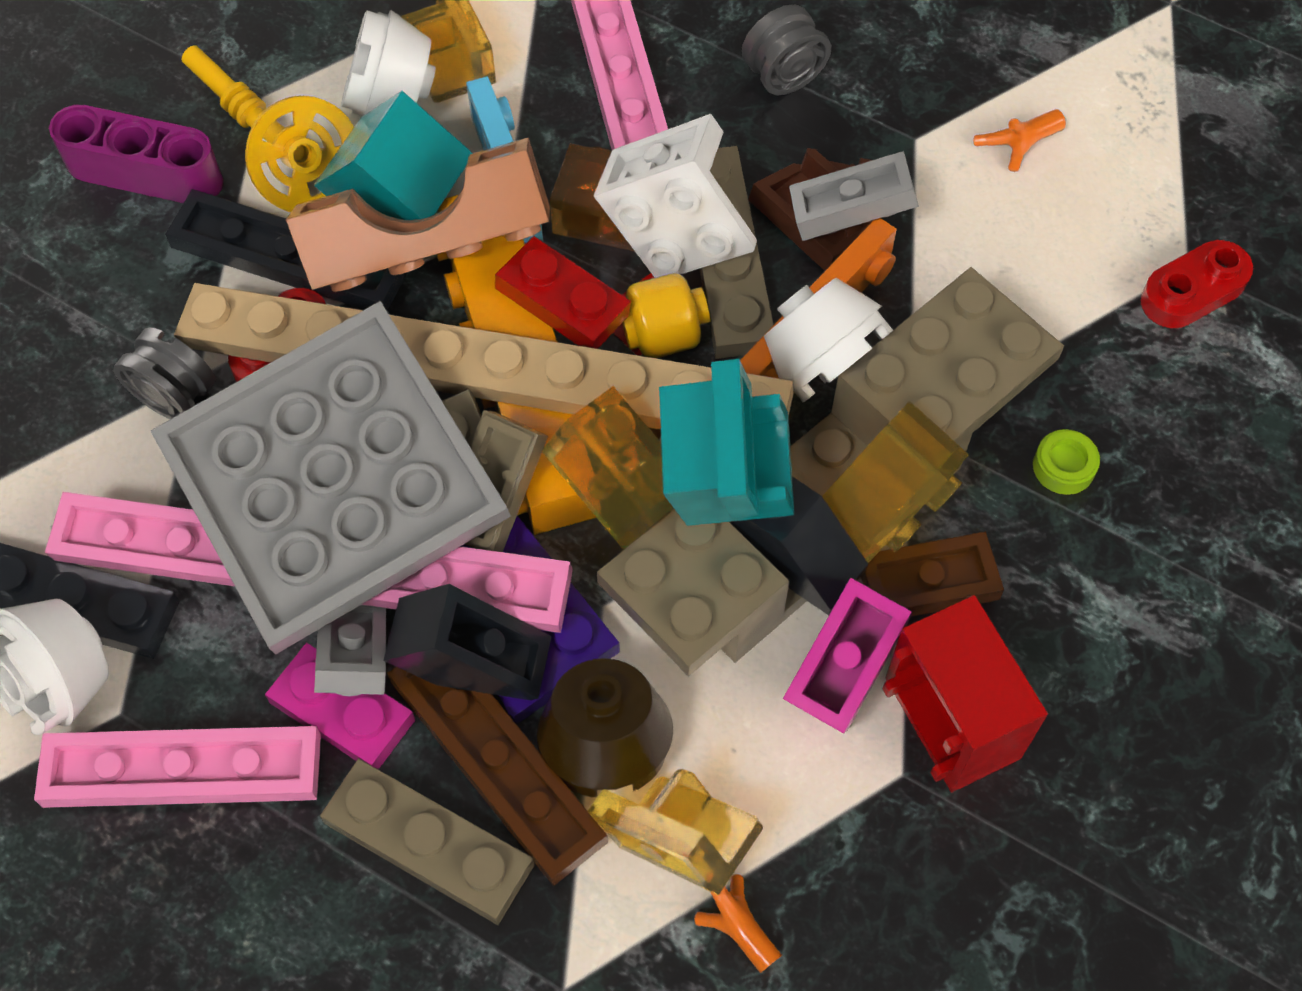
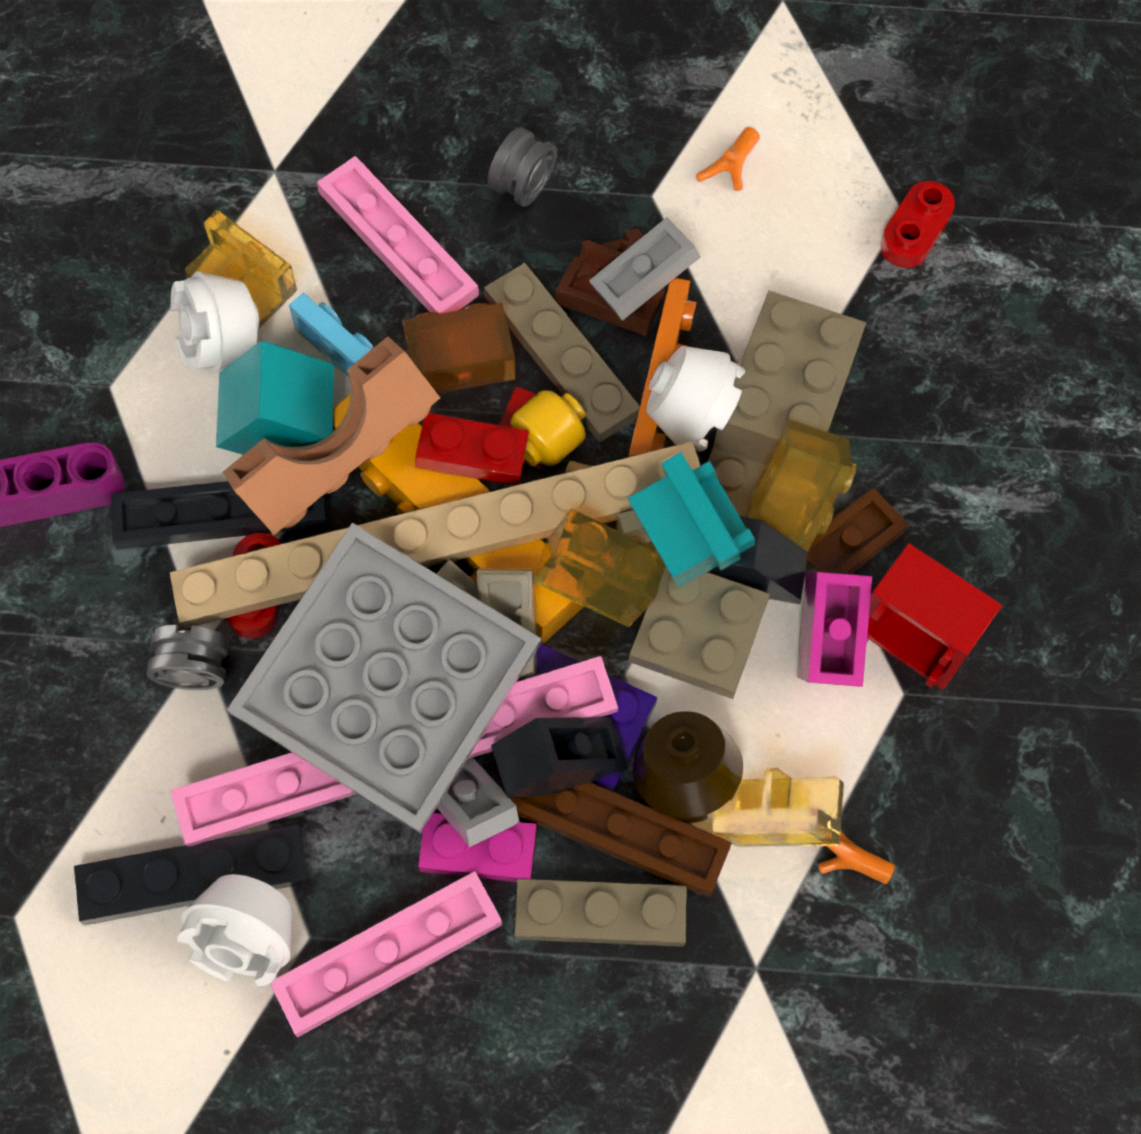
camera: 30 degrees left, 5 degrees up
(282, 142) = (158, 424): yellow dish -> none
(671, 203) = (513, 334): white bracket -> none
(1066, 461) = (896, 406): lime tile -> none

